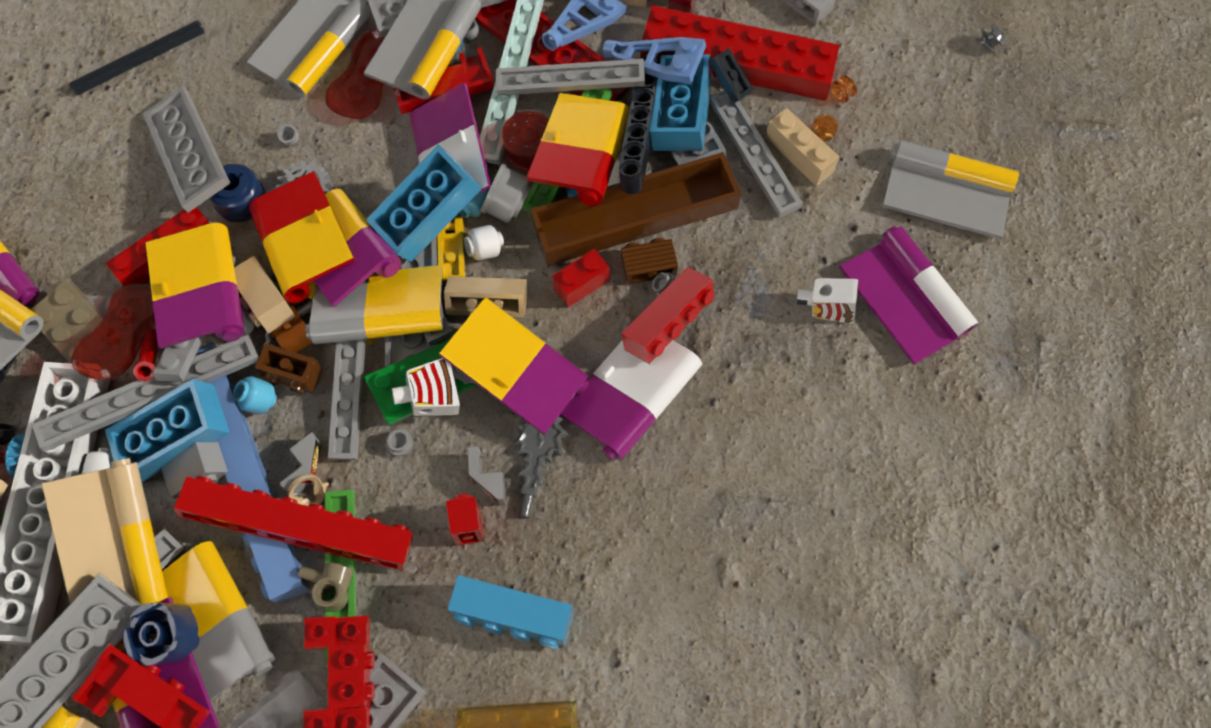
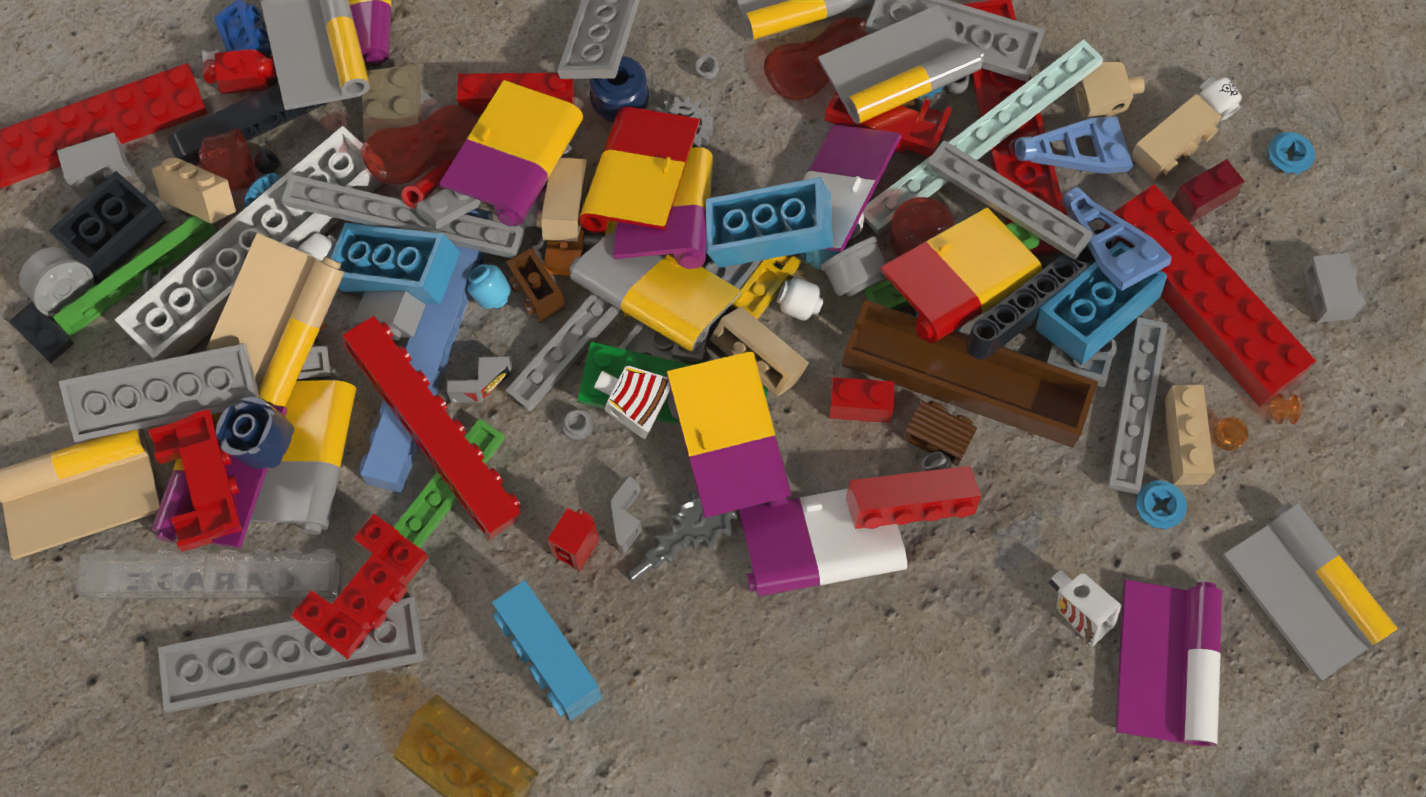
camera: 40 degrees right, 0 degrees up
(318, 486) = (478, 410): tan piece -> none
(331, 577) = (422, 496): dark tan piece -> none
(731, 75) = (1172, 311): black plate -> none
(831, 203) = (1161, 491): none -> dark azure gear

